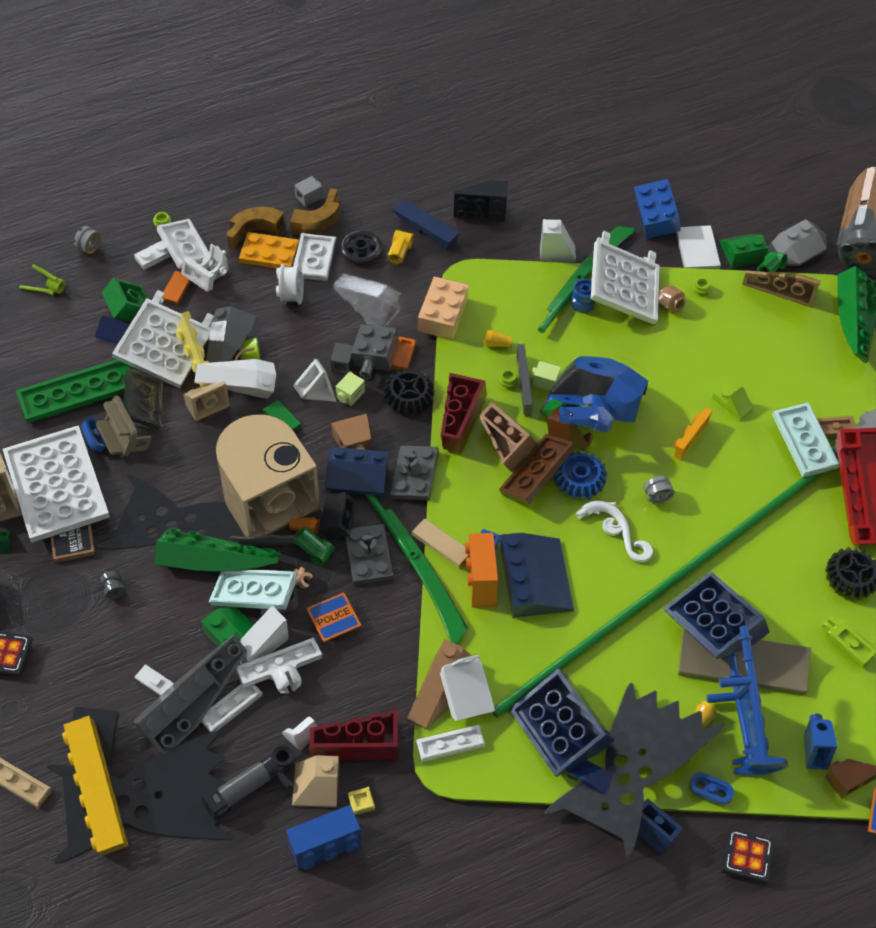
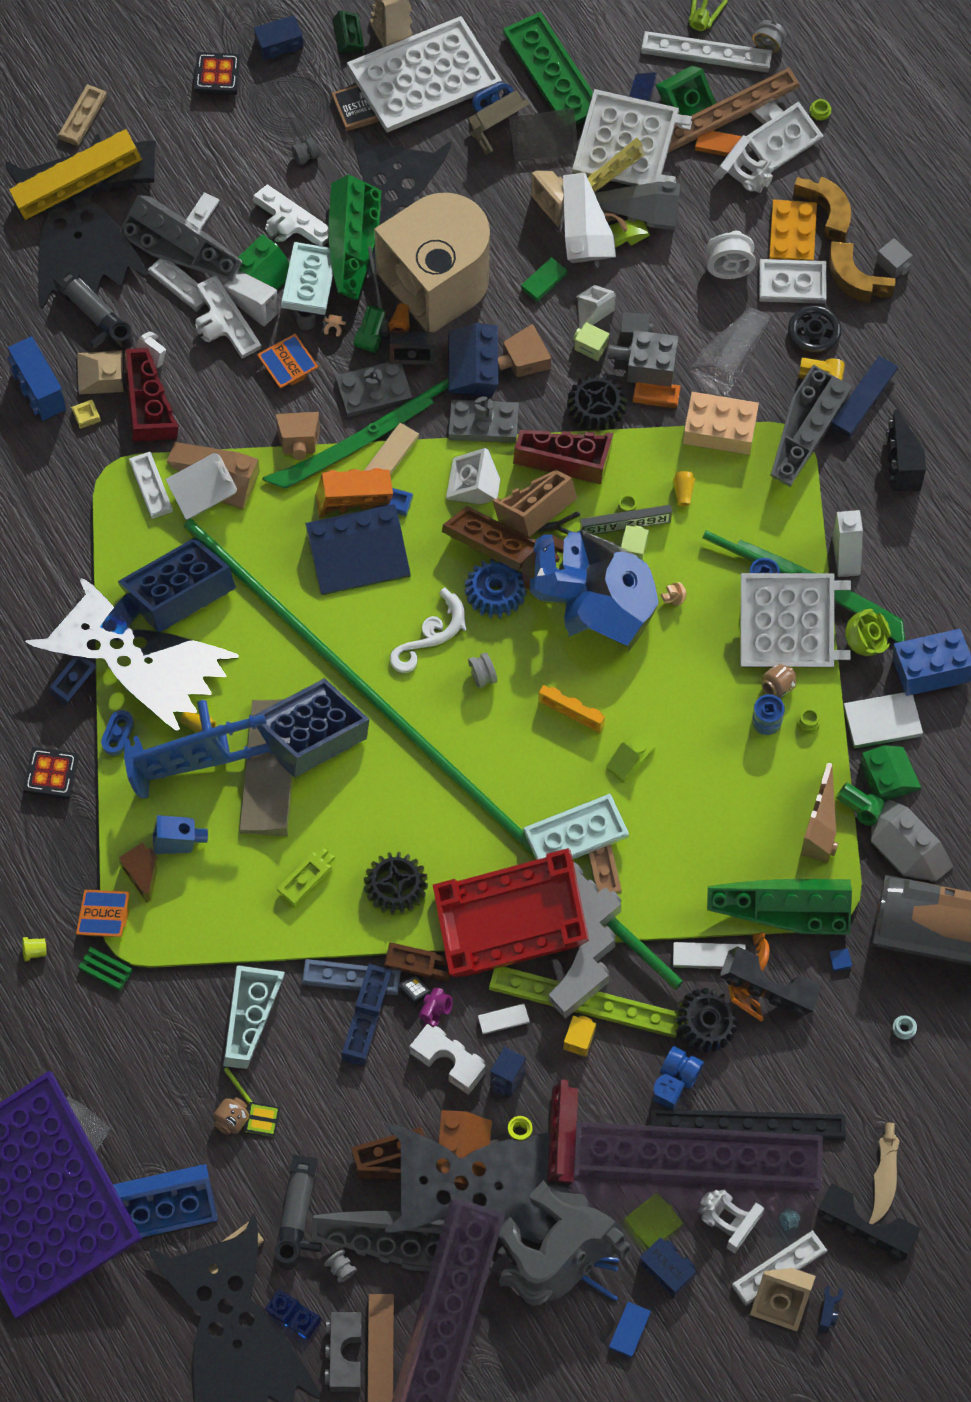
camera: 85 degrees right, 10 degrees up
(85, 287) = (706, 51): none -> white tile
(146, 262) = (735, 107): none -> medium nougat tile
(181, 604) = (289, 218): none -> white plate
(413, 612) = (298, 433): none -> medium nougat torso
(454, 252) = (807, 422): none -> dark grey wedge
(473, 481) = (473, 478): none -> white slope
(524, 425) = (556, 525): none -> black plant
(592, 351) = (675, 595): none -> light nougat plate
(633, 243) = (867, 633): none -> lime cylinder
(701, 306) = (768, 714): none -> blue wheel

